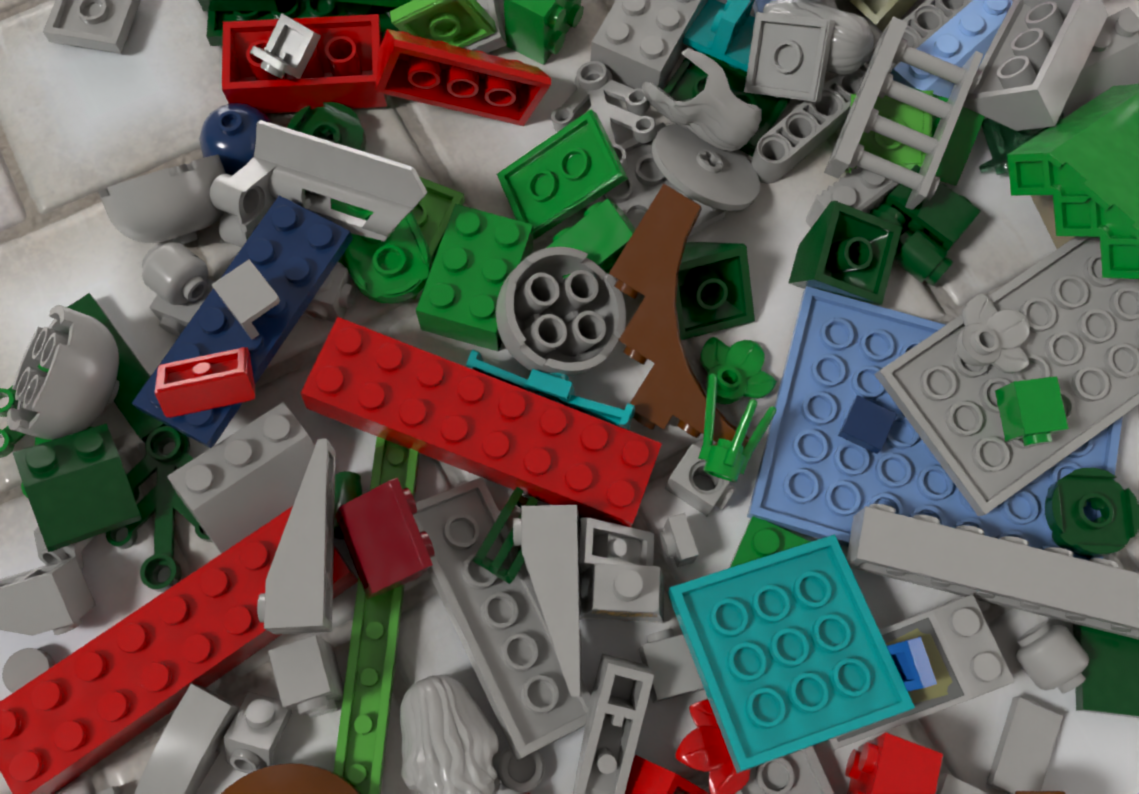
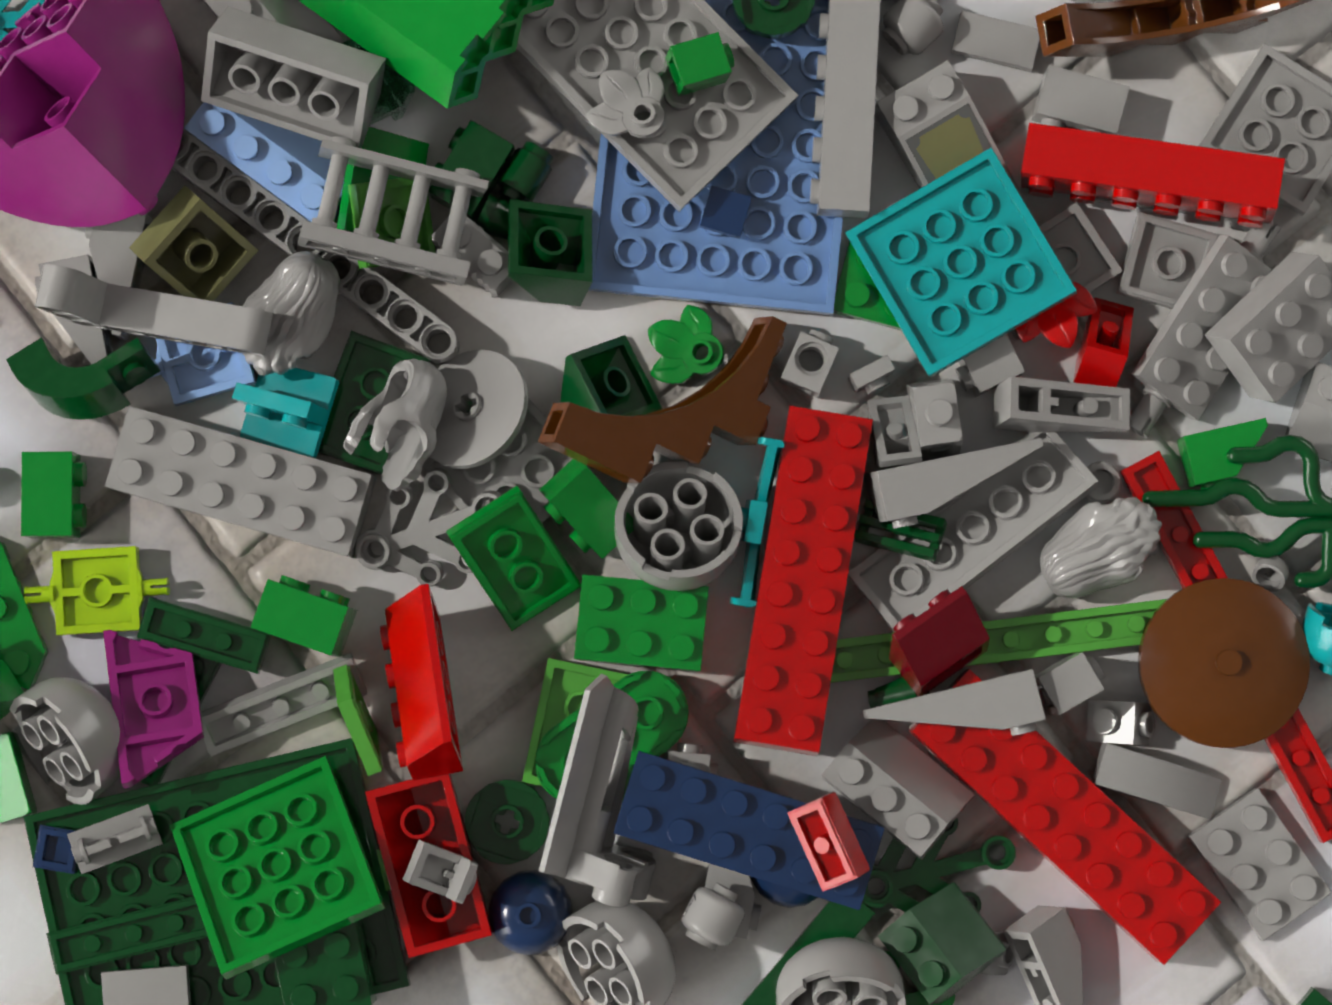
camera: 95 degrees left, 15 degrees up
(24, 667) = (1108, 946): light grey tile -> none
(246, 295) = (745, 818): light grey panel -> none
(728, 458) = (795, 341): green plant -> none
(789, 56) = (333, 339): light grey tile -> none
(912, 664) = (953, 153): blue plate -> none

